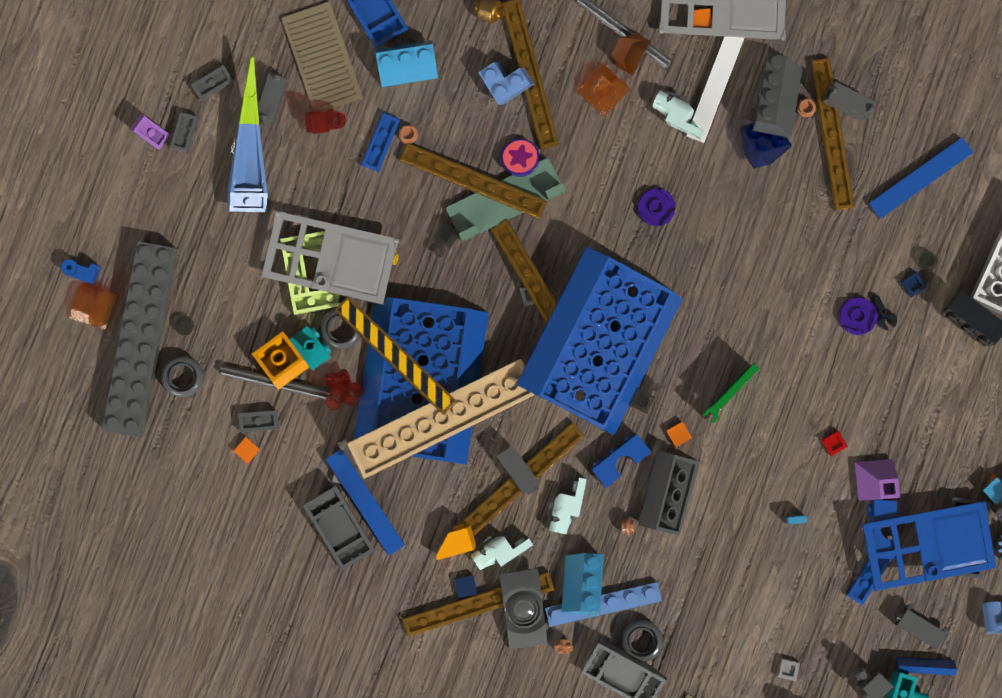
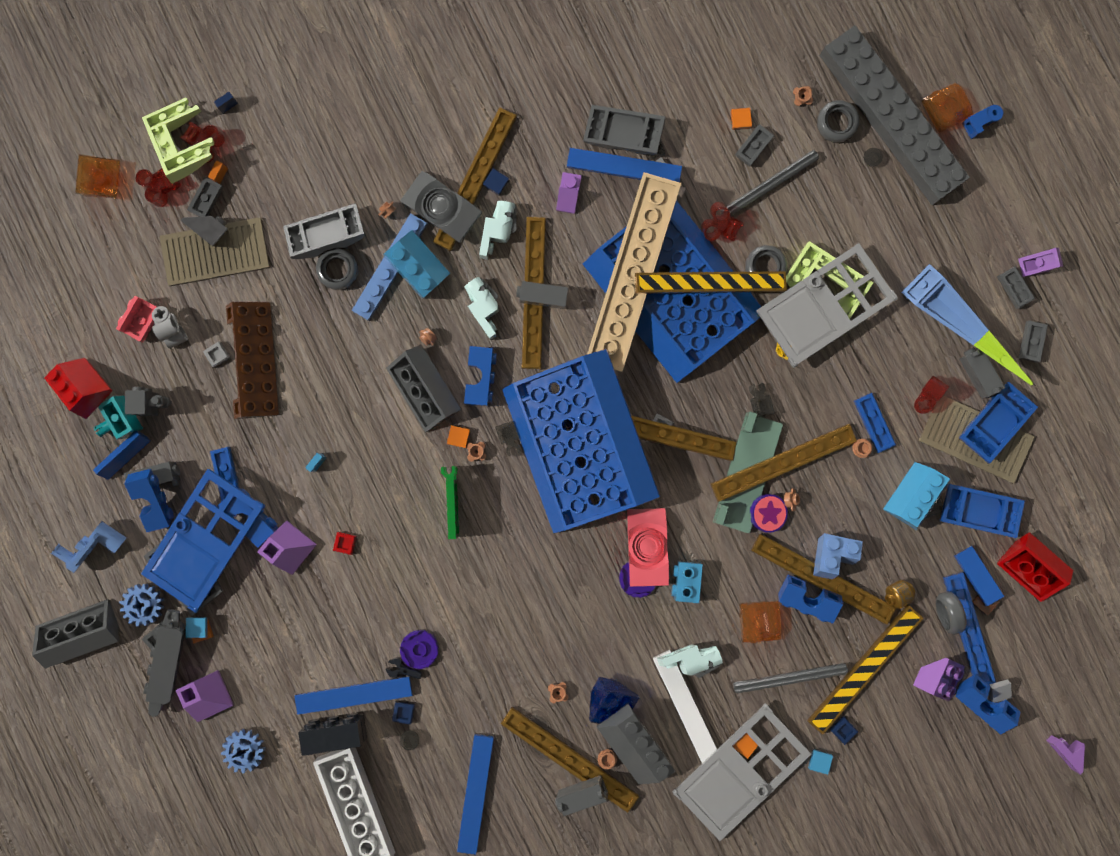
camera: 135 degrees right, 0 degrees up
(186, 415) = (806, 91): none -> nougat plate
(280, 360) = (785, 199): light orange brick -> none
(297, 54) = (998, 422): none -> blue slope
(310, 347) = (772, 231): teal brick -> none
(423, 525) = (568, 193): none -> medium lavender slope
(457, 542) = (533, 203): light orange slope -> none
(494, 150) = (791, 499): none -> nougat plate
(551, 55) = (824, 607): none -> blue arch
(625, 169) = (687, 582): none -> dark azure brick
(628, 221) = (647, 547): none -> coral slope
(630, 52) = (771, 668): reddish brown slope -> none
(672, 411) = (471, 451): none -> nougat plate
(765, 637) = (253, 359): none -> reddish brown bracket
(792, 181) = (558, 697): none -> nougat plate
(930, 623) = (146, 486): none -> blue arch
(935, 332) = (353, 695): none -> blue tile

